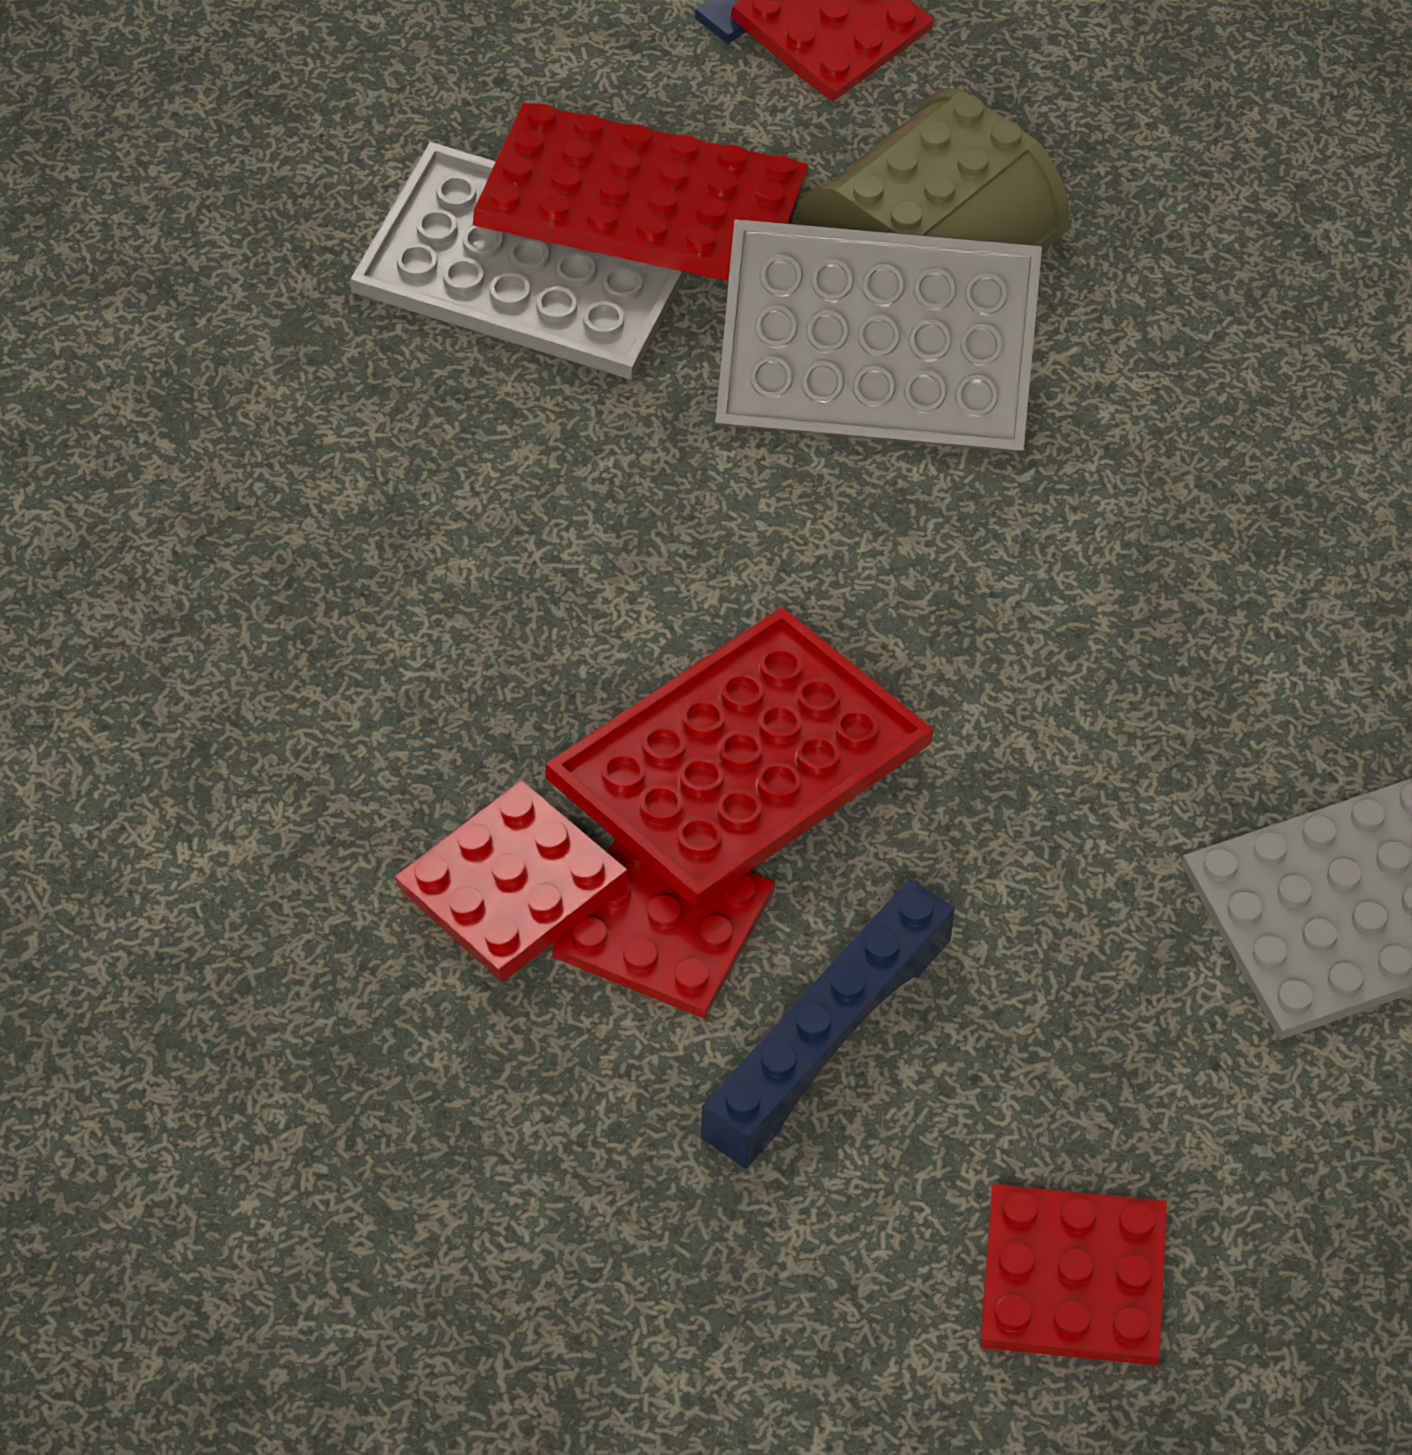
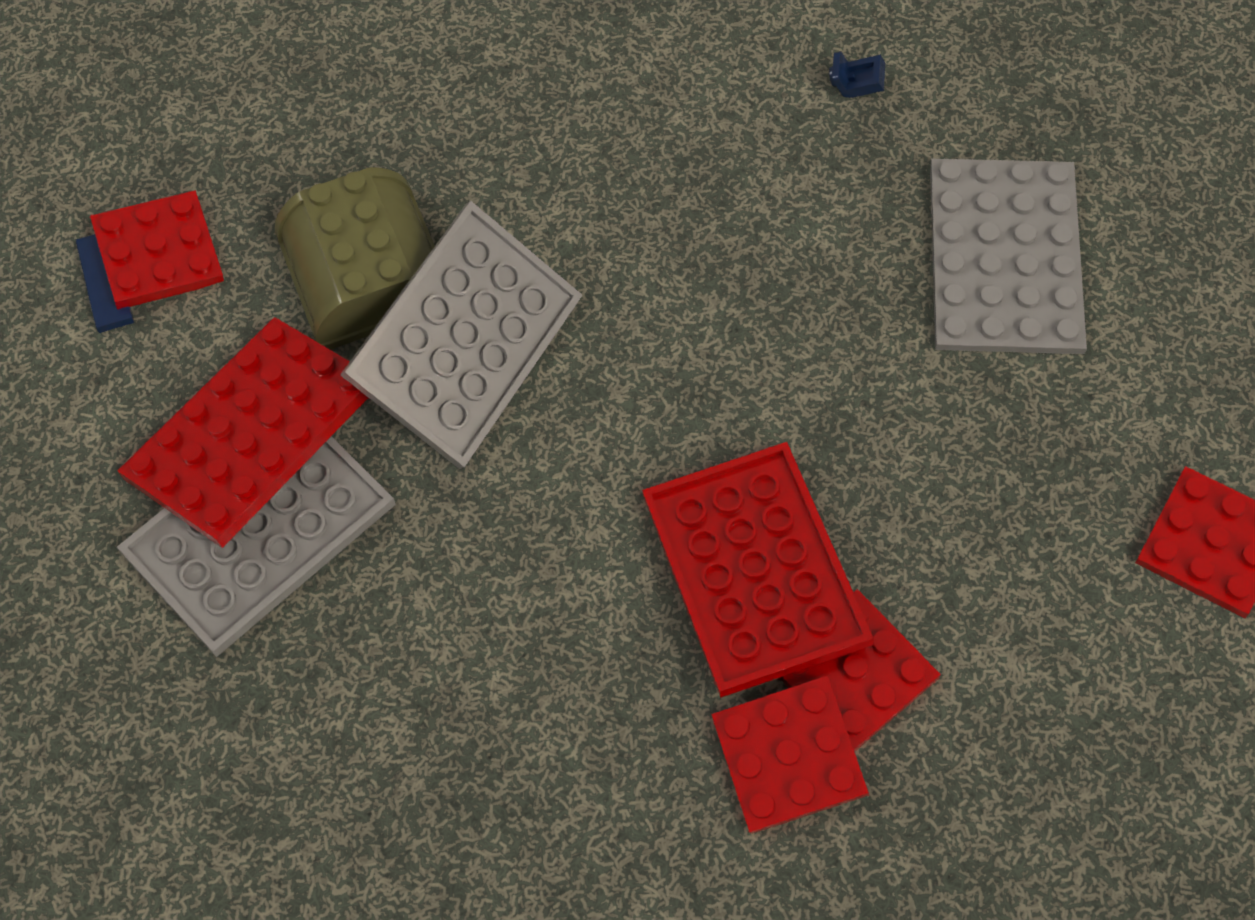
camera: 60 degrees left, 10 degrees up
(771, 1080) = (1020, 649): dark blue arch -> none

